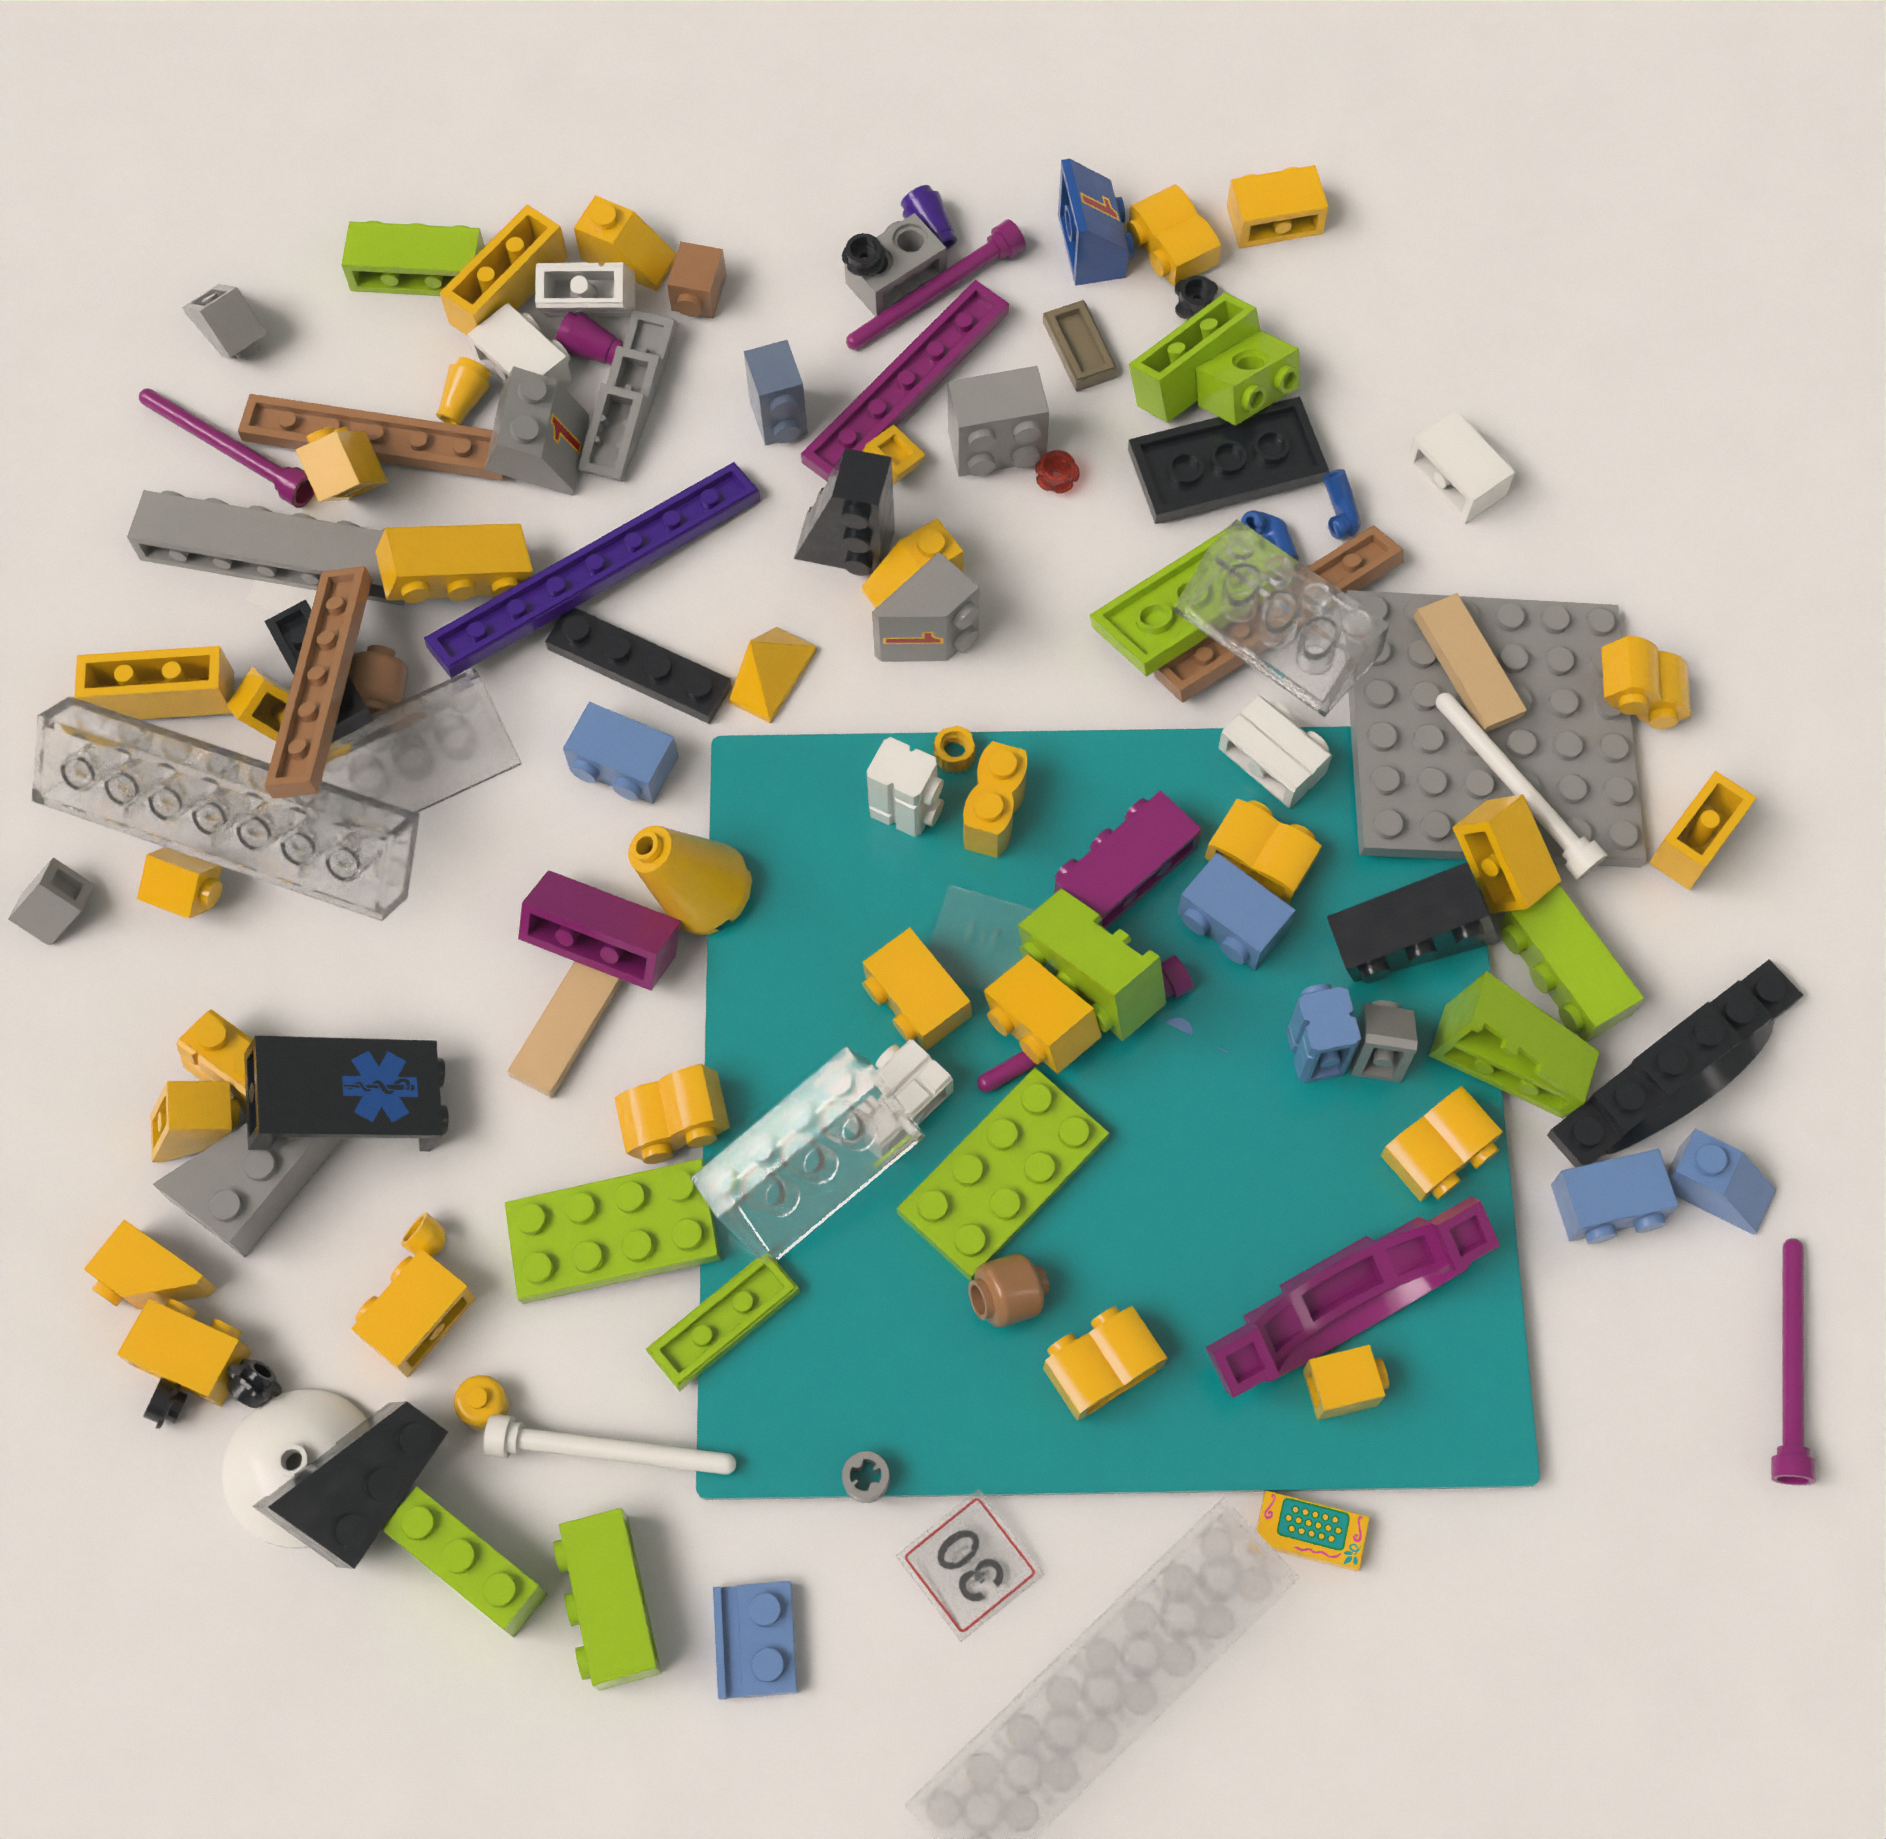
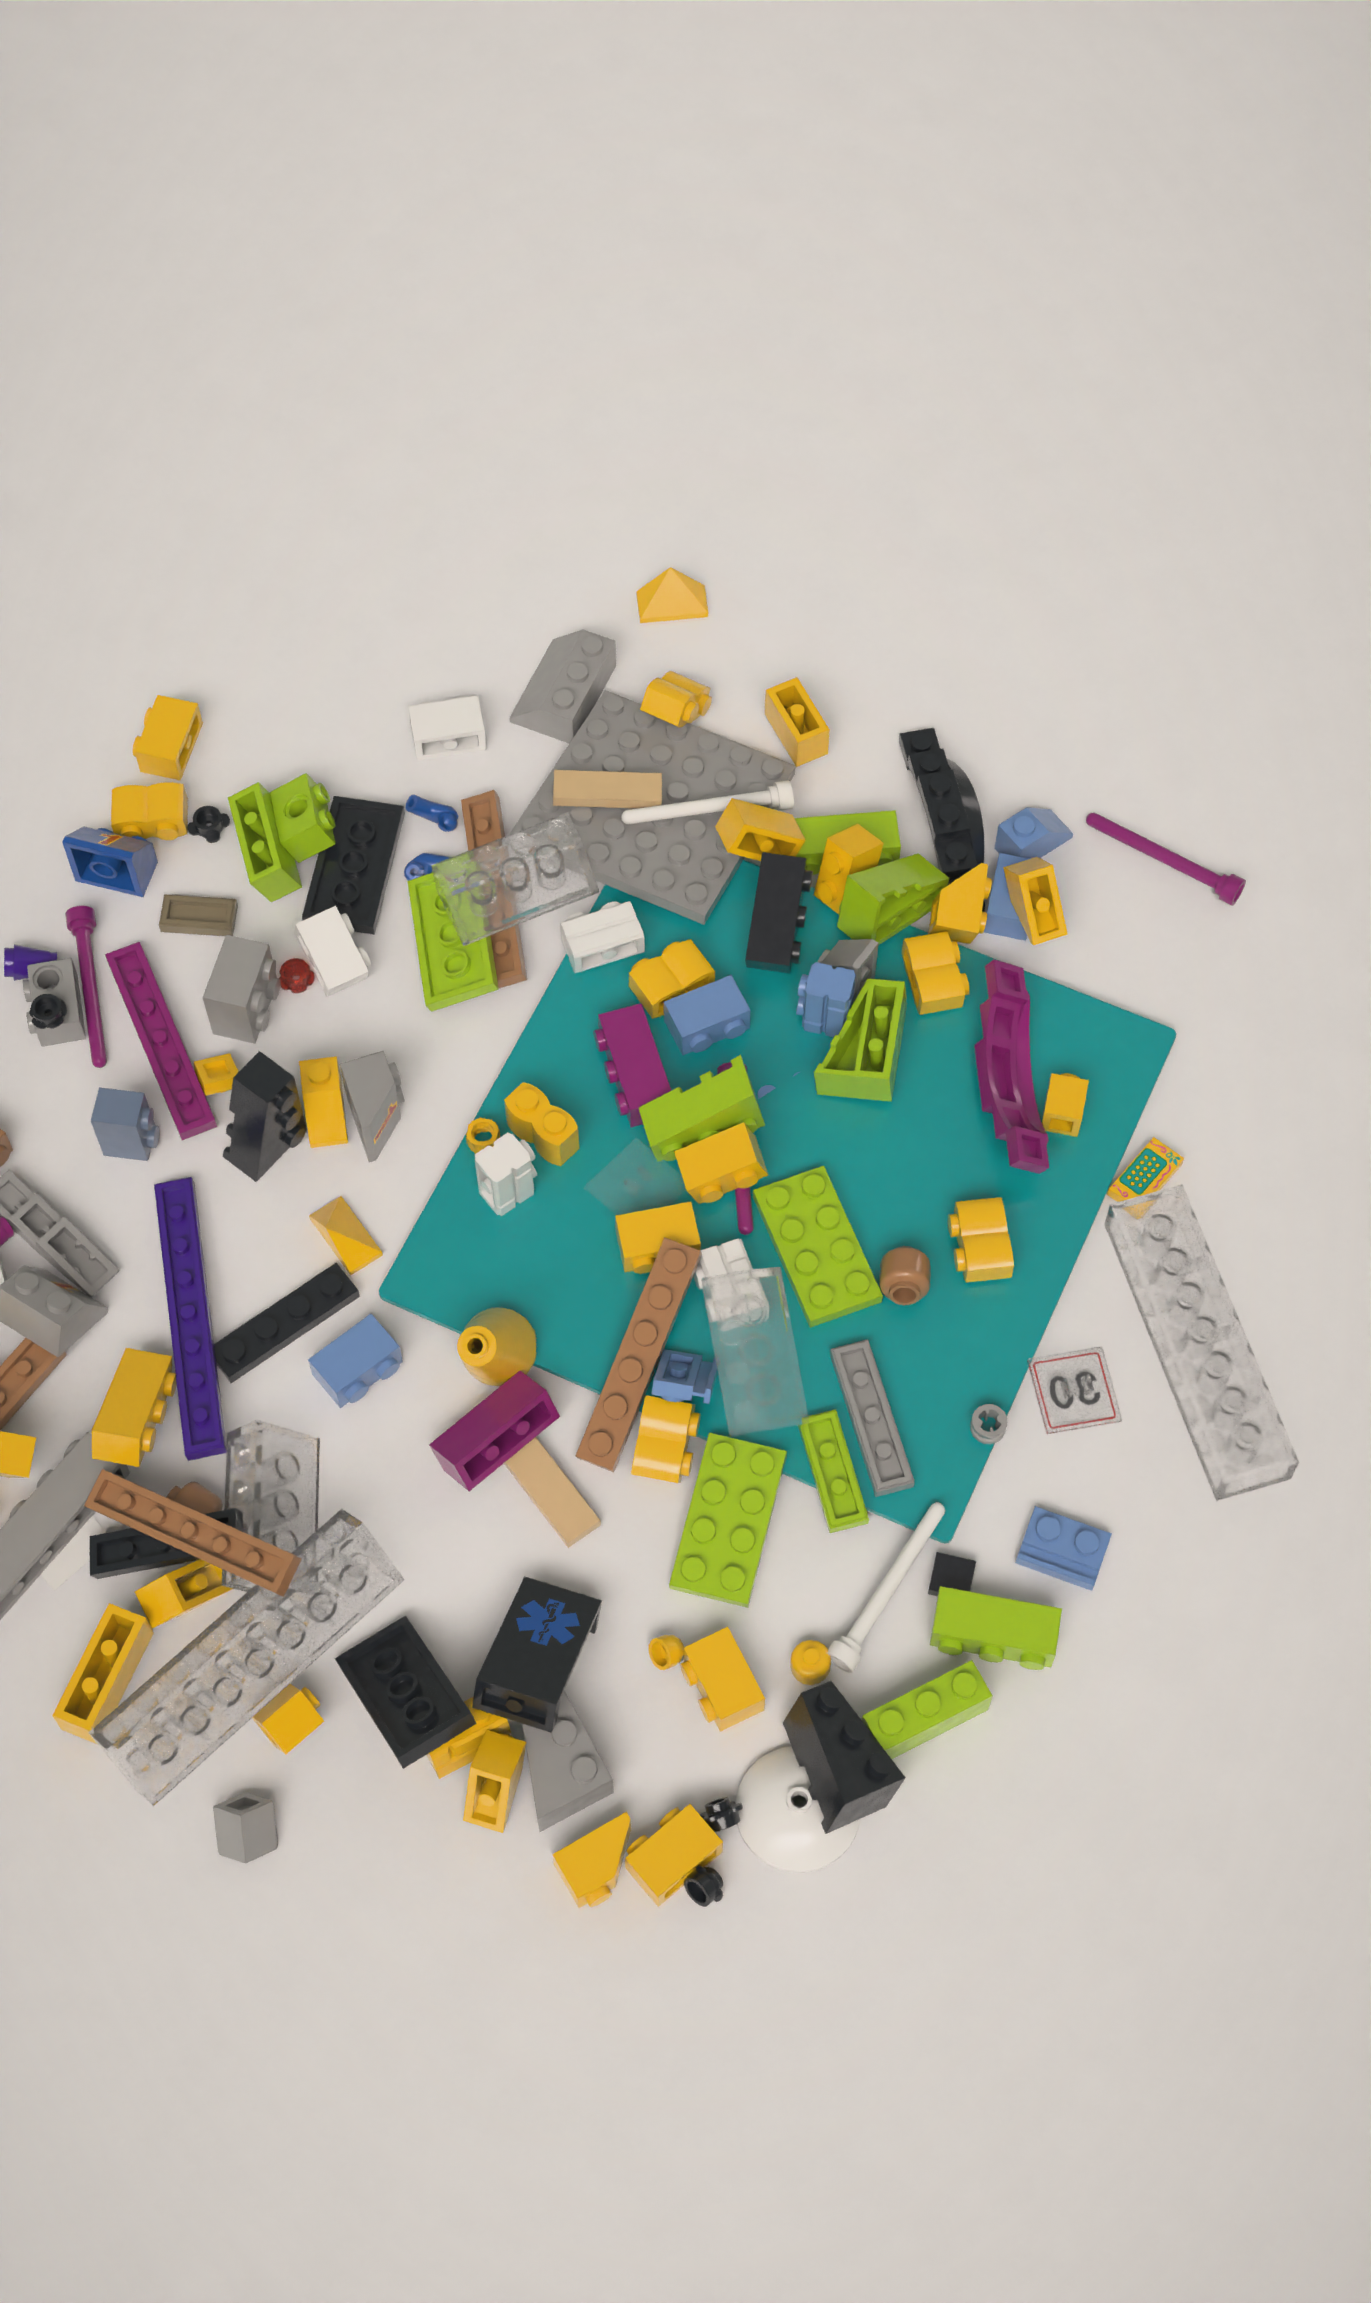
camera: 65 degrees left, 5 degrees down
(243, 980) = (405, 1691): none -> black plate
(657, 1520) = (951, 1573): none -> black tile
(741, 1092) = (684, 1376): none -> medium blue plate
(762, 1036) = (638, 1355): none -> medium nougat plate
(810, 1335) = (872, 1418): none -> light grey tile
(1099, 487) = (332, 951): none -> white brick
(1294, 1111) = (868, 1046): none -> lime wedge
(1530, 966) = (844, 855): none -> yellow brick
(1552, 1131) = (960, 906): none -> yellow slope
(1599, 562) = (566, 685): none -> light grey slope
(1607, 1219) = (1036, 899): none -> yellow slope
(1796, 620) = (671, 598): none -> yellow slope

